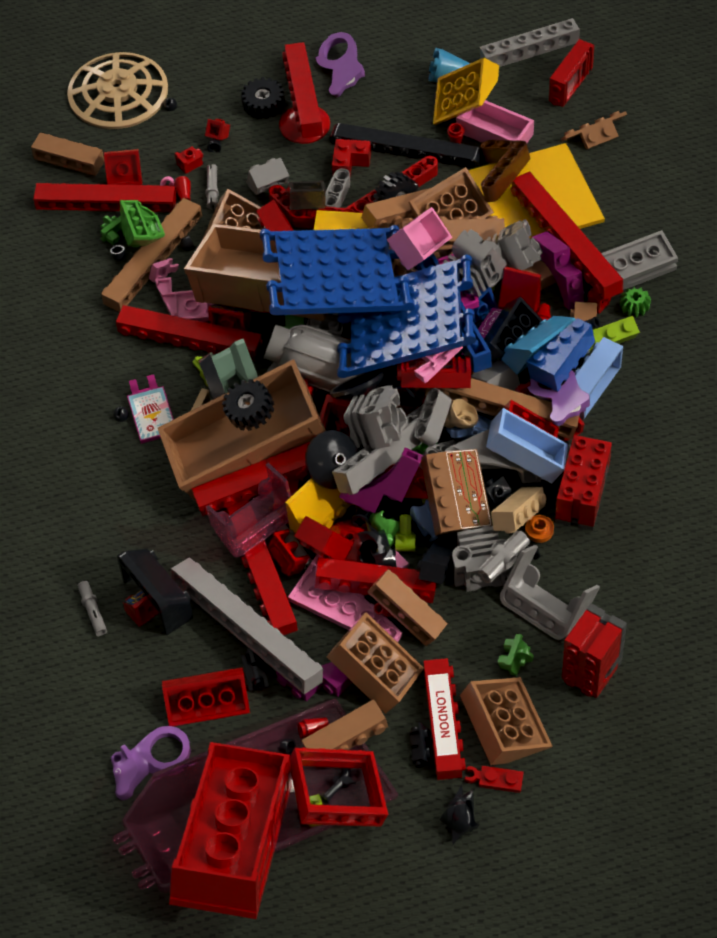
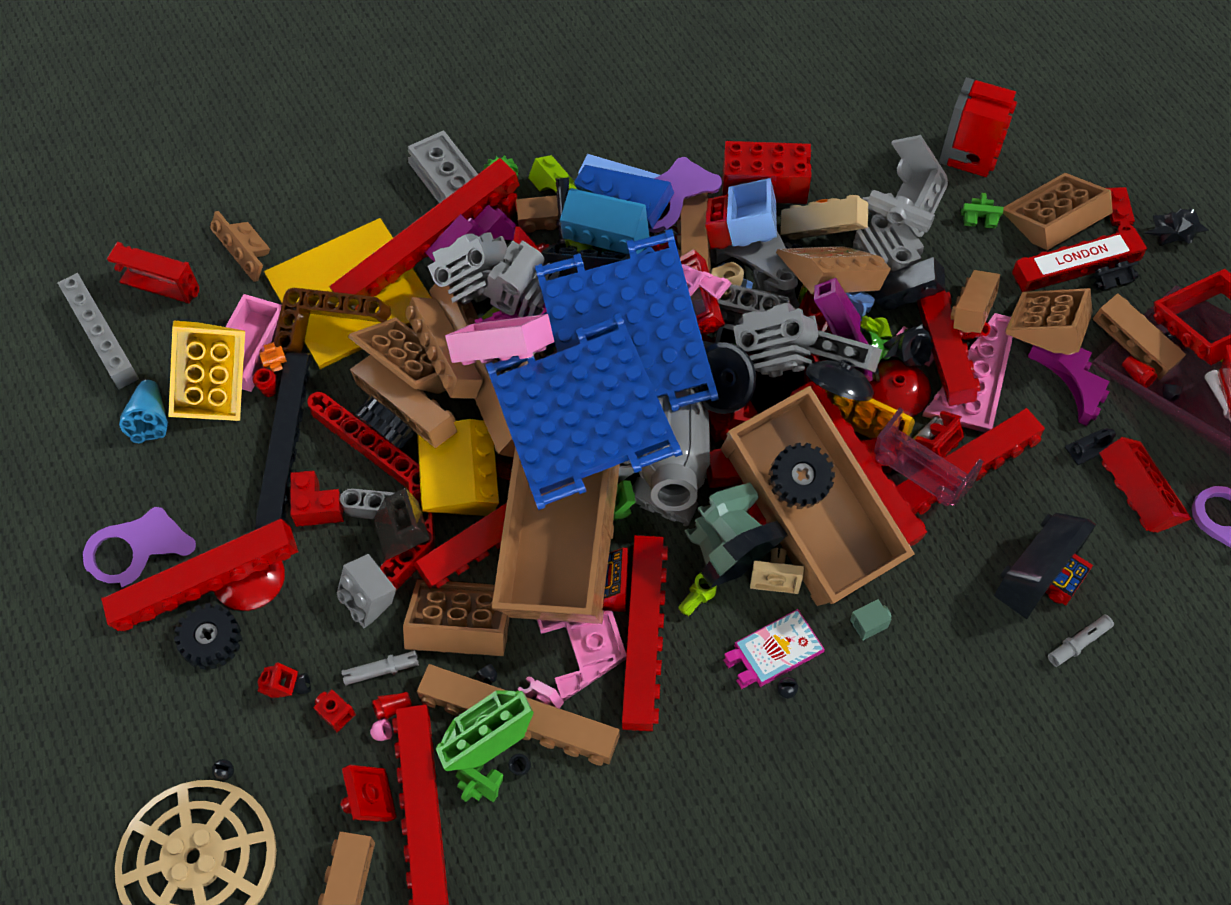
camera: 105 degrees left, 5 degrees up
(152, 472) = (871, 619): none -> sand green brick
(248, 626) = (1051, 457): light grey brick -> none
(323, 540) = (923, 393): red brick -> none
(472, 135) = (272, 357): none -> orange gear

